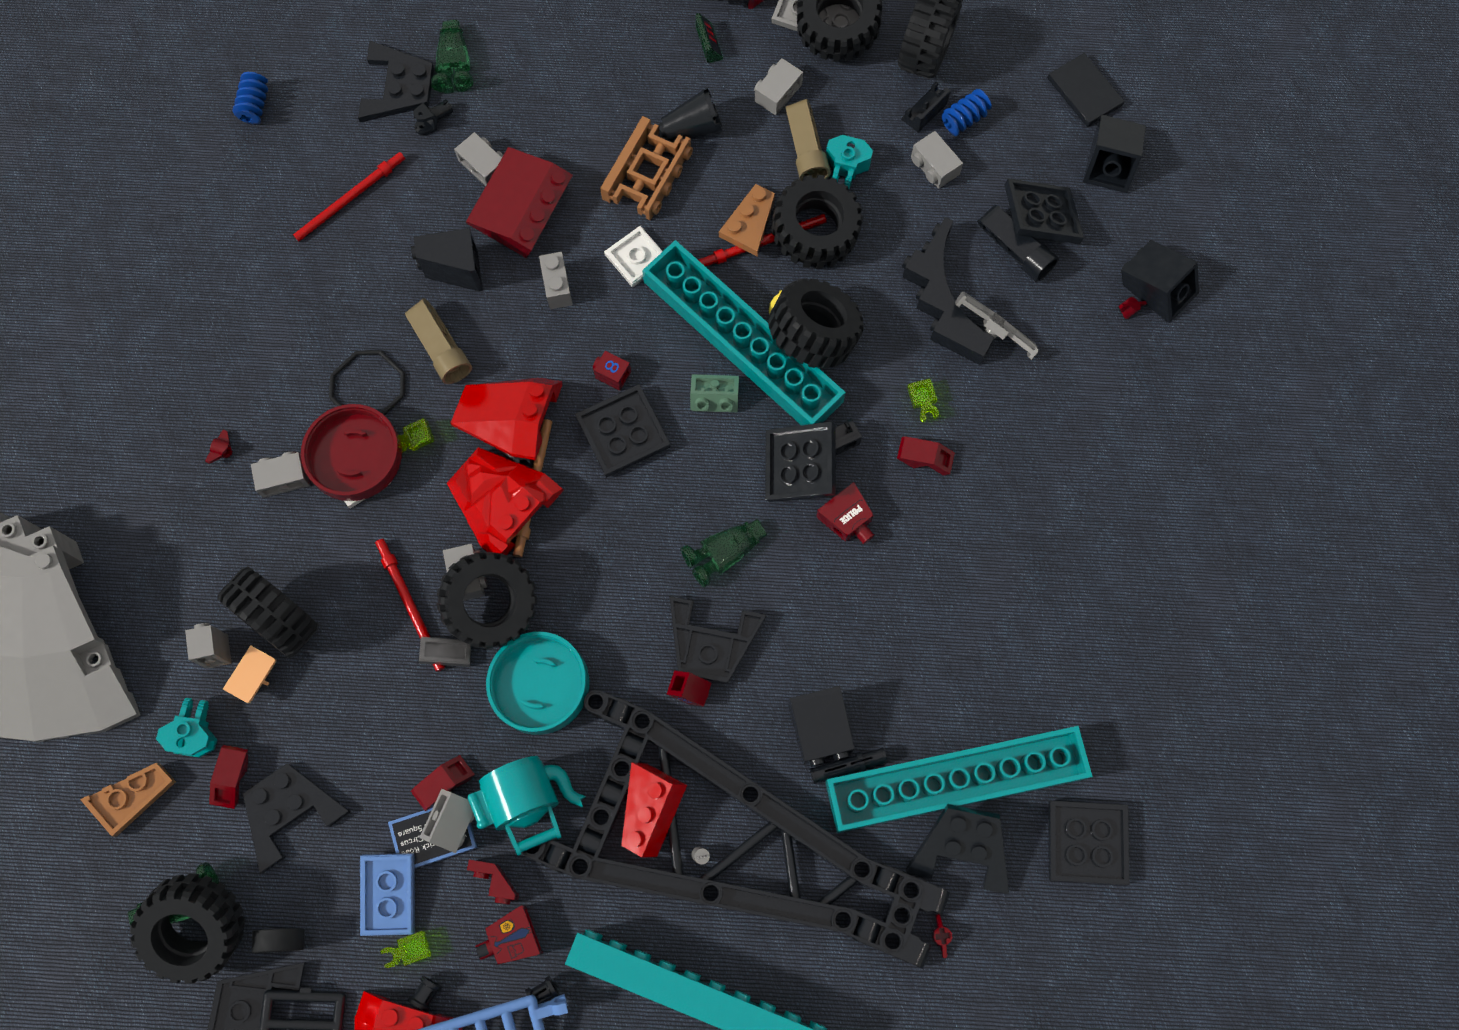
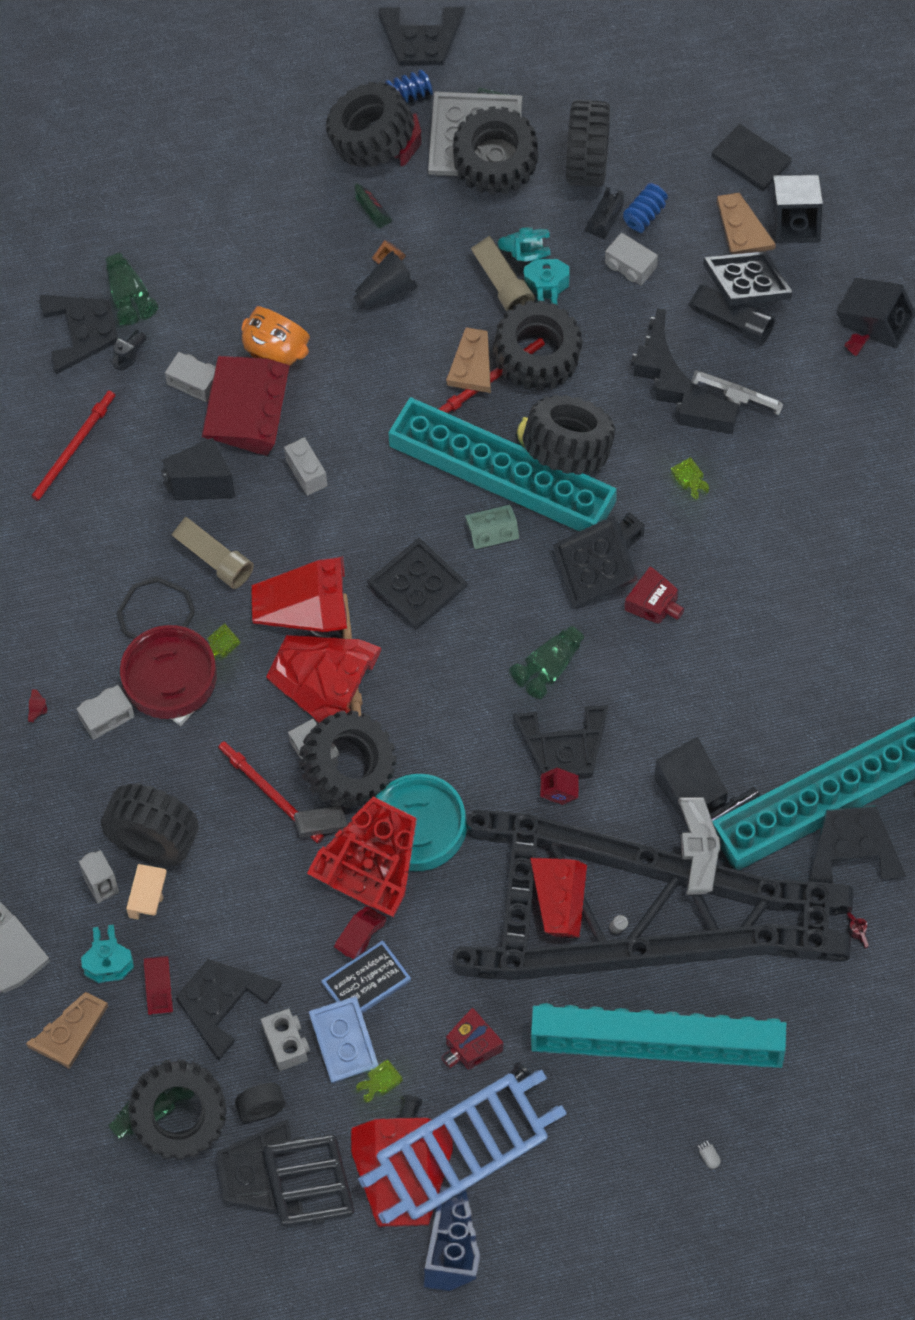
camera: 15 degrees left, 10 degrees down
(322, 876) = (281, 1040): none -> light grey brick
(448, 821) = (380, 956): light grey brick -> none
(473, 711) = (370, 857): none -> red wedge
(500, 885) = (448, 1004): dark red slope -> none
(519, 797) = (438, 916): teal piece -> none
(567, 144) = (274, 337): none -> orange piece
(611, 370) = (388, 532): dark red brick -> none
(632, 158) = (338, 339): medium nougat fence -> none
(633, 254) = (371, 424): white tile -> none
(709, 83) = (386, 248): none -> dark orange slope
(778, 86) = (456, 232): light grey brick -> none
(807, 801) = (699, 845): none -> light grey plate
(839, 117) = (526, 244): none -> teal hinge
(925, 453) = (704, 524): dark red slope -> none
(1054, 156) = (742, 227): none -> medium nougat wing

